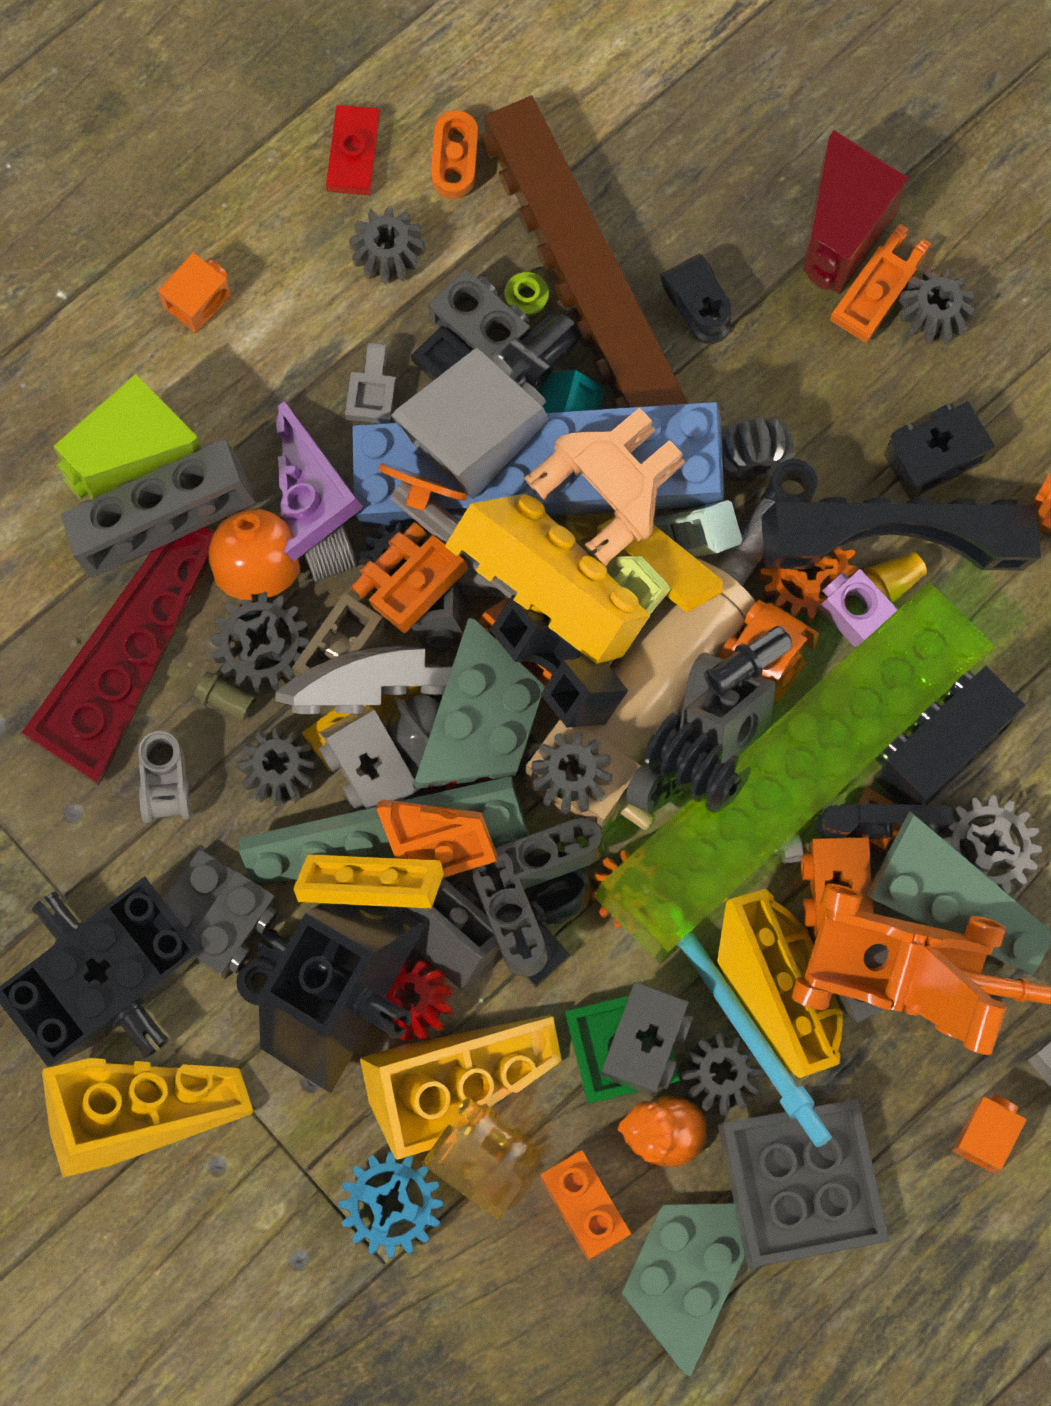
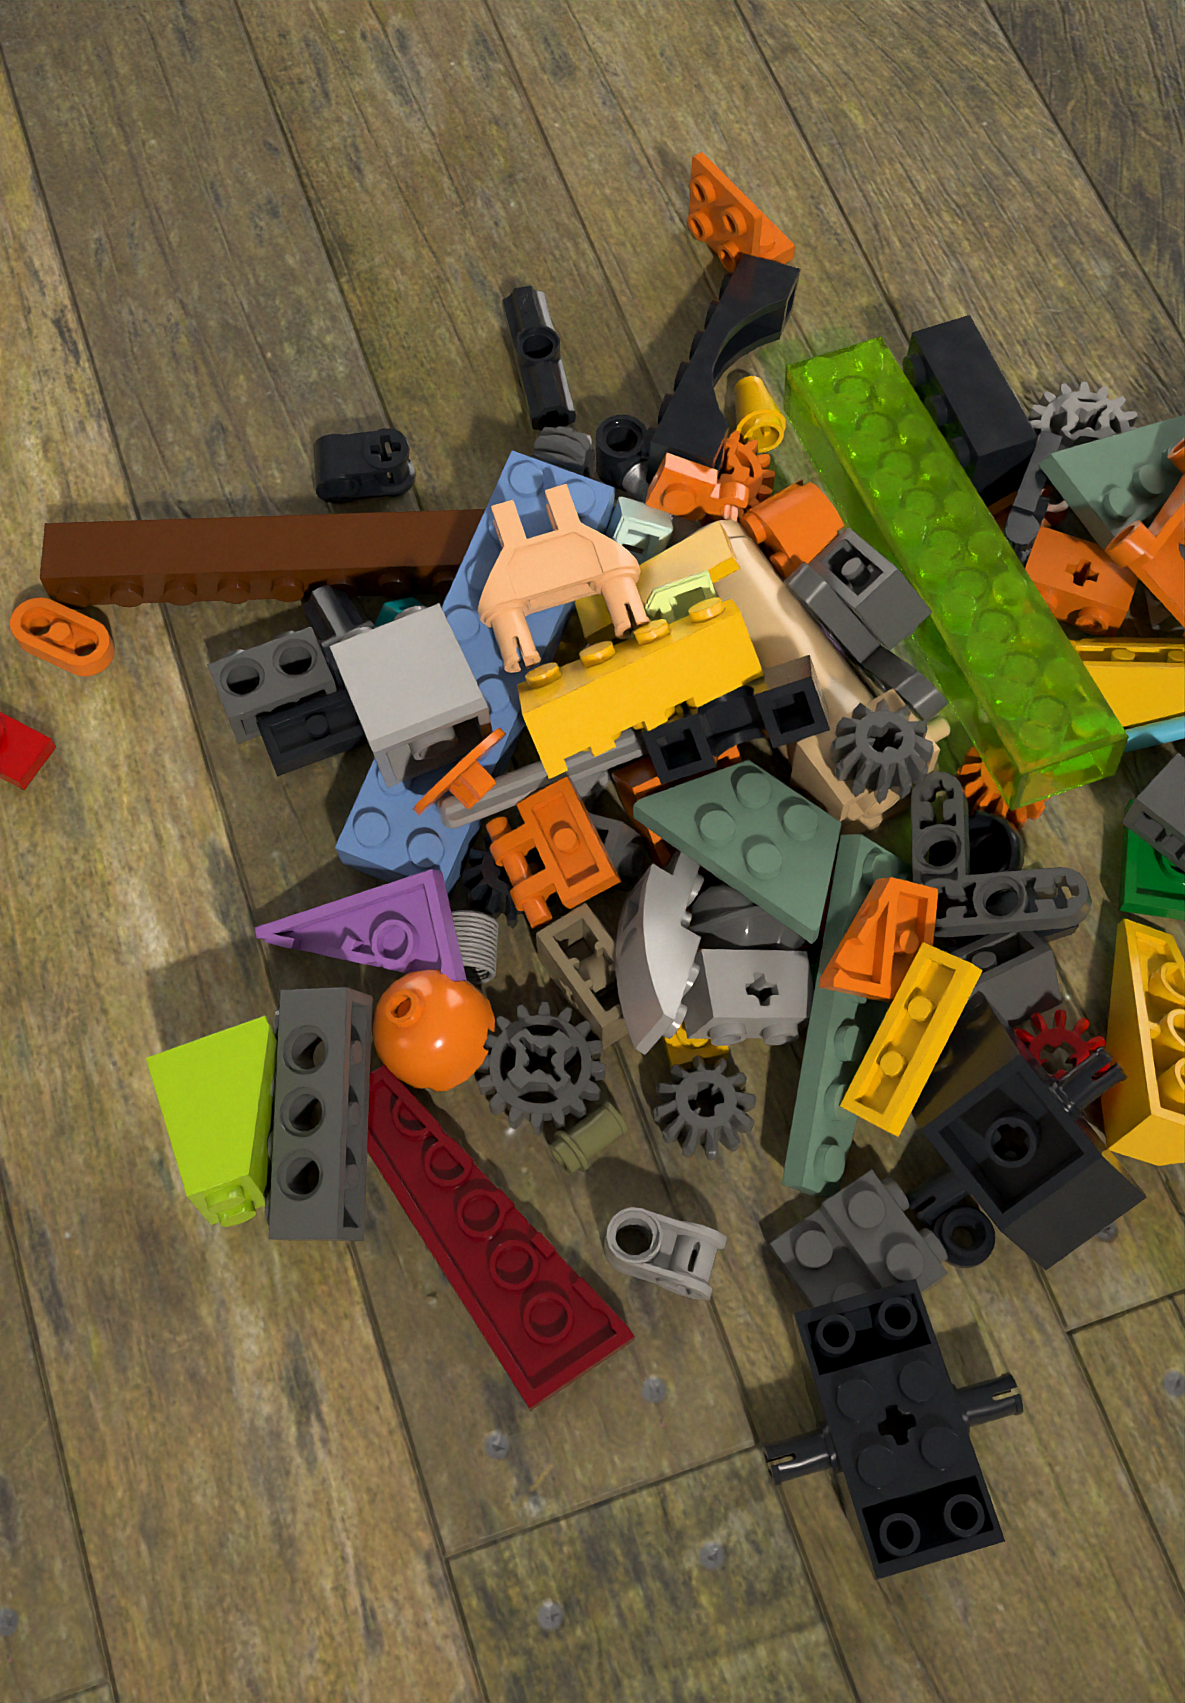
camera: 65 degrees left, 10 degrees down
(120, 1111) = (1077, 1468): yellow wedge -> none
(195, 291) = (66, 974): orange brick -> none
(371, 392) = (292, 830): light grey plate -> none
(392, 230) = (149, 745): dark grey gear -> none
(531, 305) = (258, 616): lime plate -> none
(694, 766) = (922, 618): black piece -> none
(748, 660) = (821, 534): black axle -> none
(757, 551) = (691, 488): none -> orange plate
(850, 212) = (344, 290): dark red slope -> none
(876, 606) = (786, 437): lavender brick -> none
(878, 287) = (436, 308): orange hinge -> none
(884, 374) = (538, 359): none -> black piece
(924, 468) = (639, 320): black brick -> none
(944, 294) = (484, 265): dark grey gear -> none

